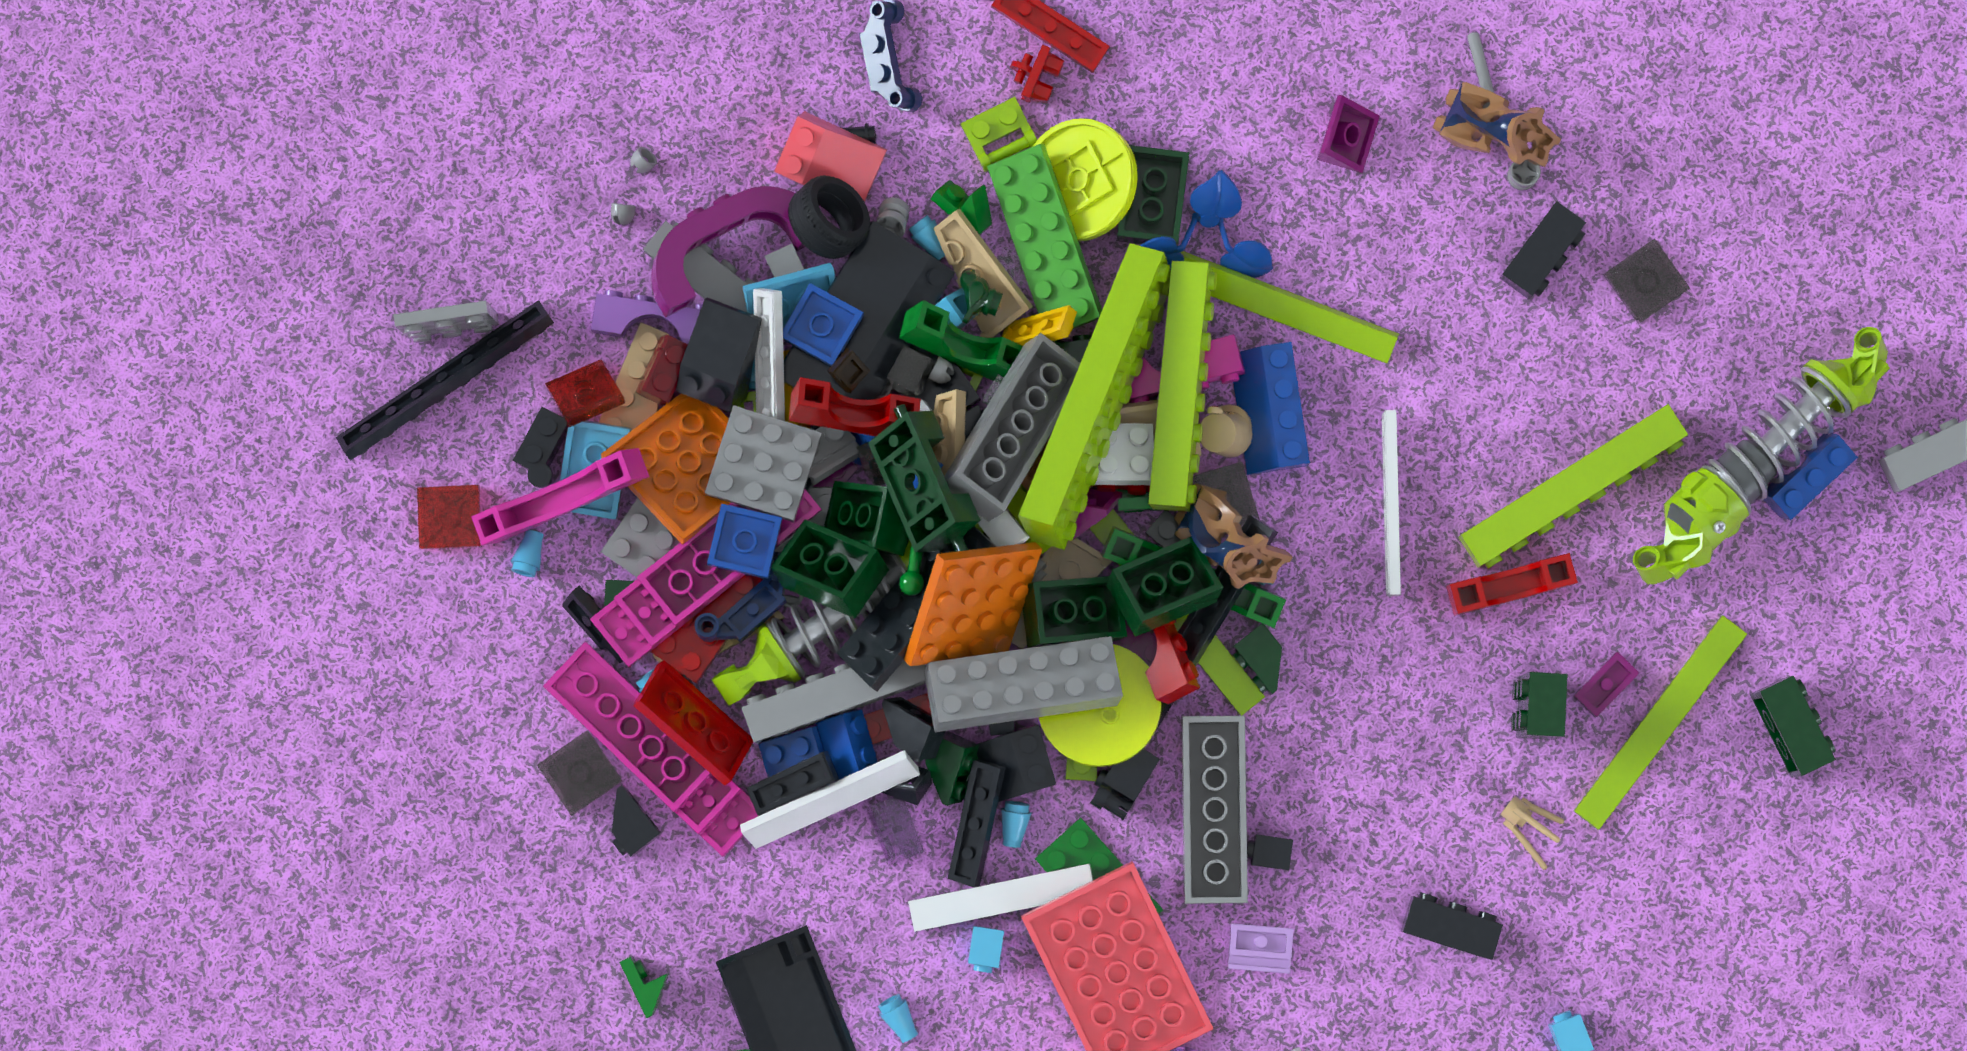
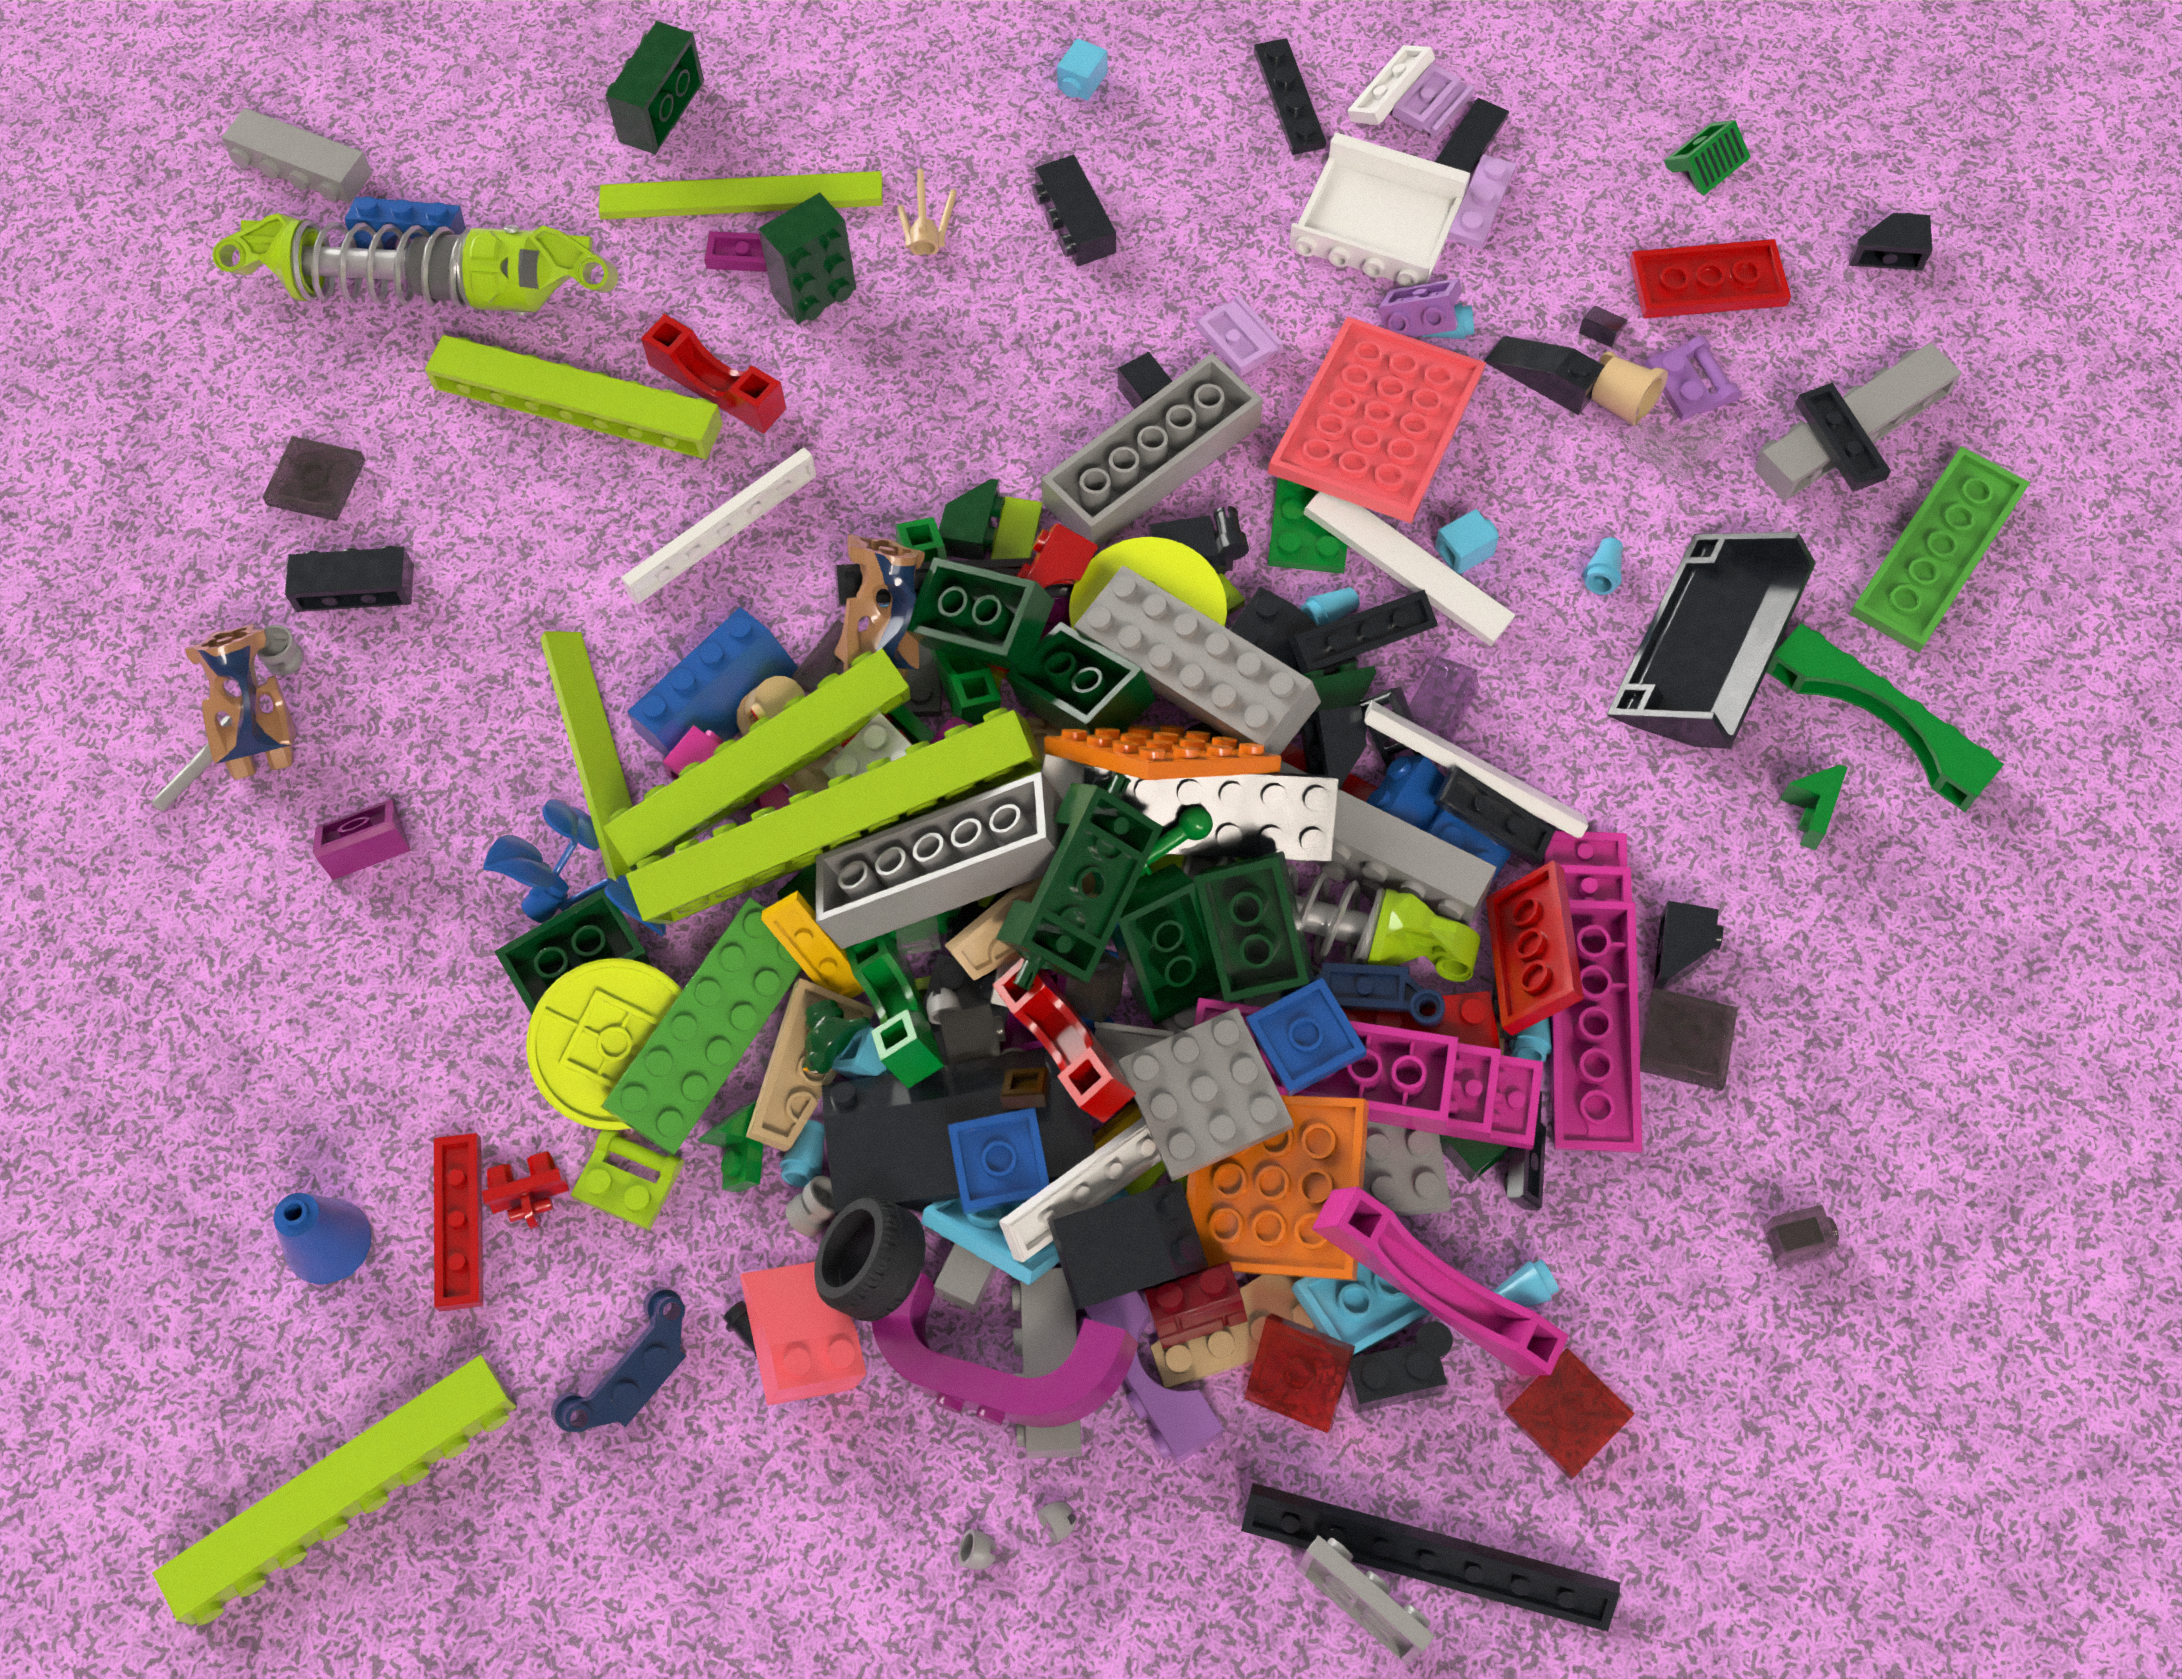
camera: 135 degrees left, 20 degrees down
(426, 724) = (1801, 1236): none -> clear smoke brick

